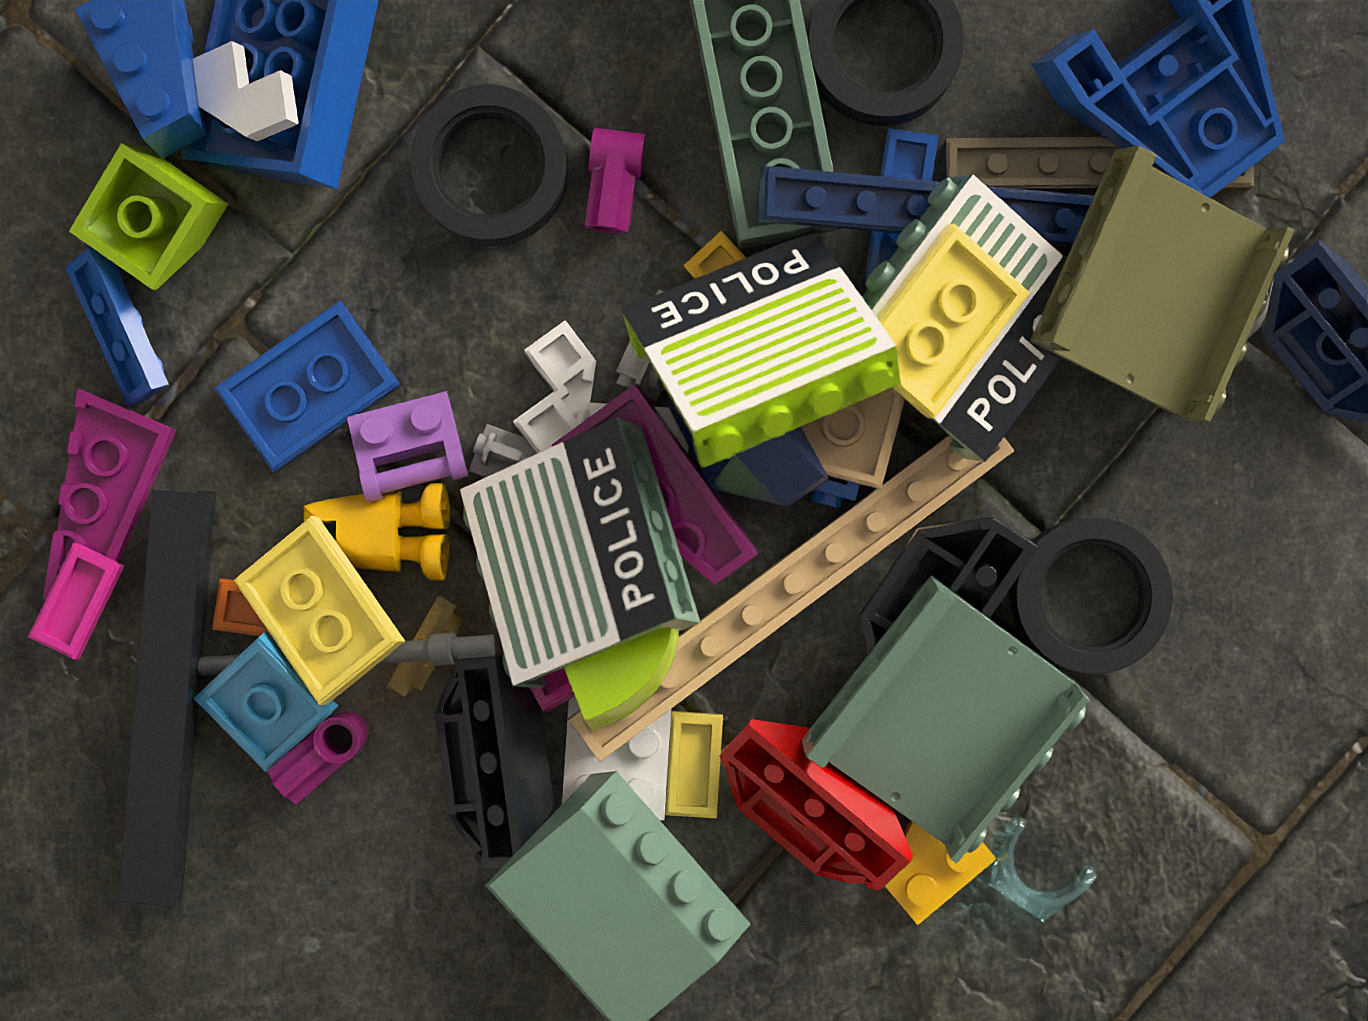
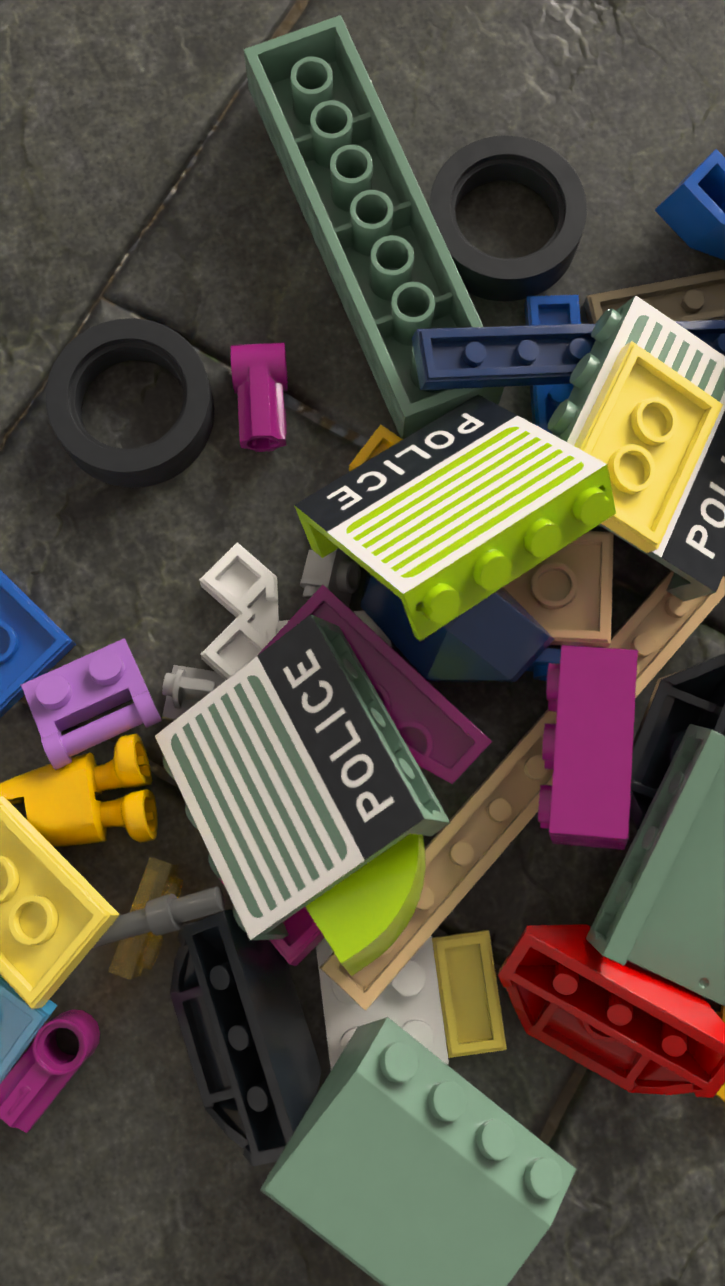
camera: 15 degrees left, 10 degrees down
(836, 580) = (589, 747): none -> magenta brick

